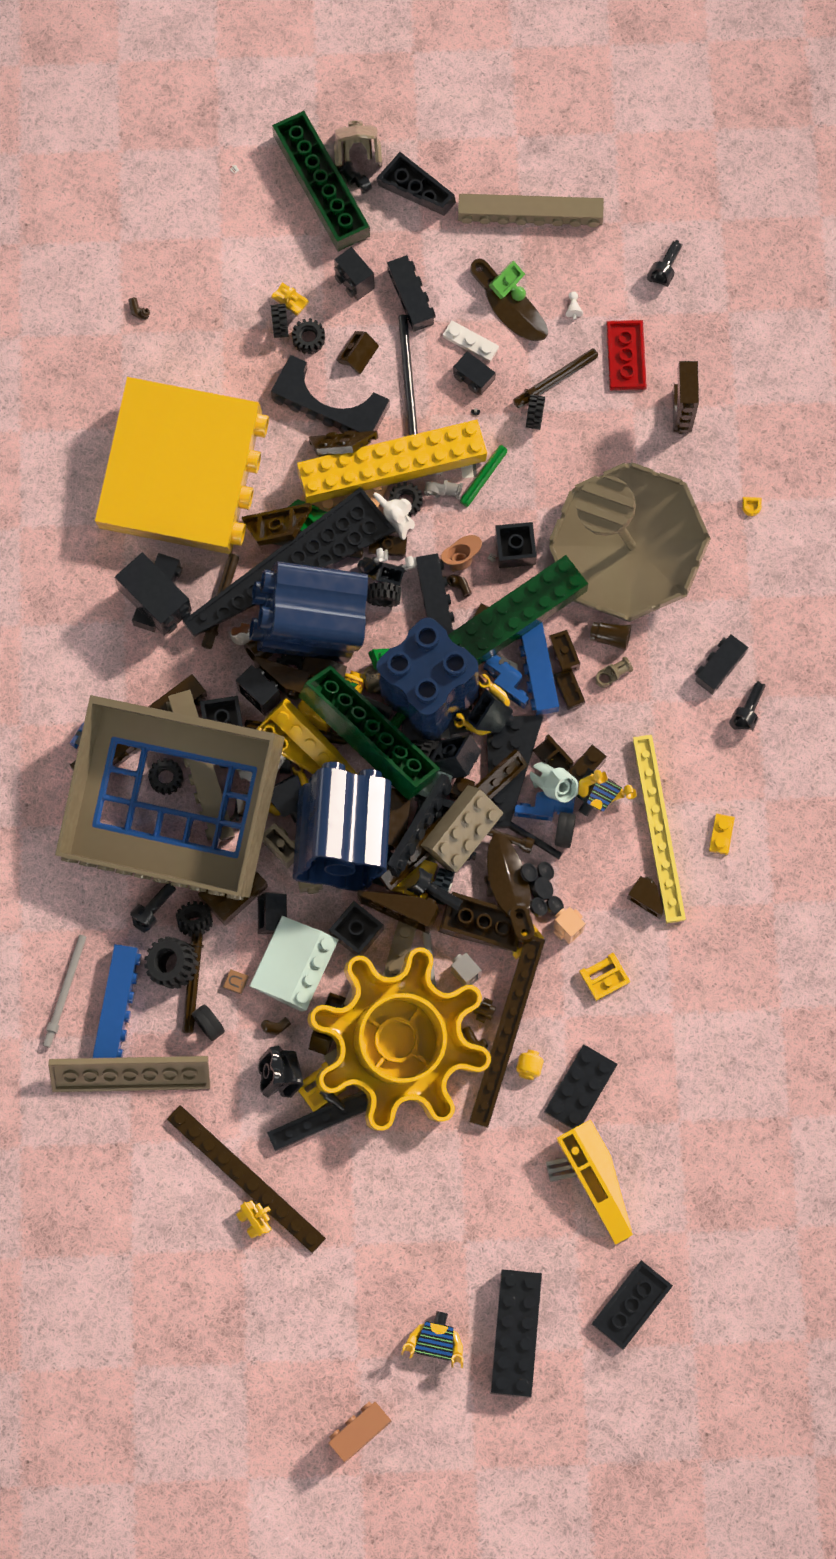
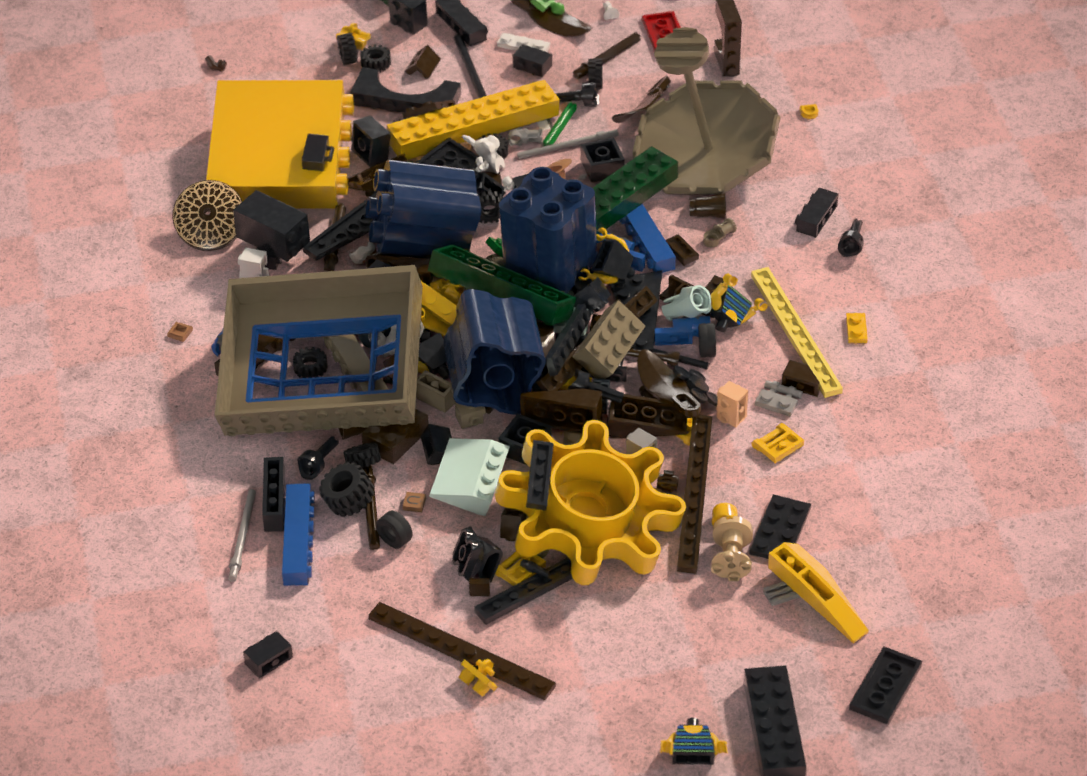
camera: 10 degrees left, 30 degrees down
(44, 703) = (180, 331): none -> medium nougat tile
(64, 1150) = (267, 654): none -> black brick
(101, 951) = (273, 494): none -> black brick
(102, 540) = (202, 230): none -> dark brown dish
(128, 638) = (253, 263): none -> white brick
(129, 1074) = (322, 580): dark tan plate -> none
(214, 502) = (316, 152): none -> black piece
(275, 1028) = (455, 528): dark brown arm -> none
(276, 1108) = (479, 587): none -> dark brown tile
(279, 473) = (370, 141): none -> black brick
(351, 1018) = (539, 475): none -> black plate
(522, 440) = (586, 94): none -> black piece
(522, 502) = (567, 144): none -> light grey bar
(526, 1107) = (732, 537): none -> tan piece
(564, 651) = (669, 221): dark brown panel -> none
(581, 465) = (652, 95): none -> dark brown plant
(615, 919) = (777, 402): none -> light grey plate

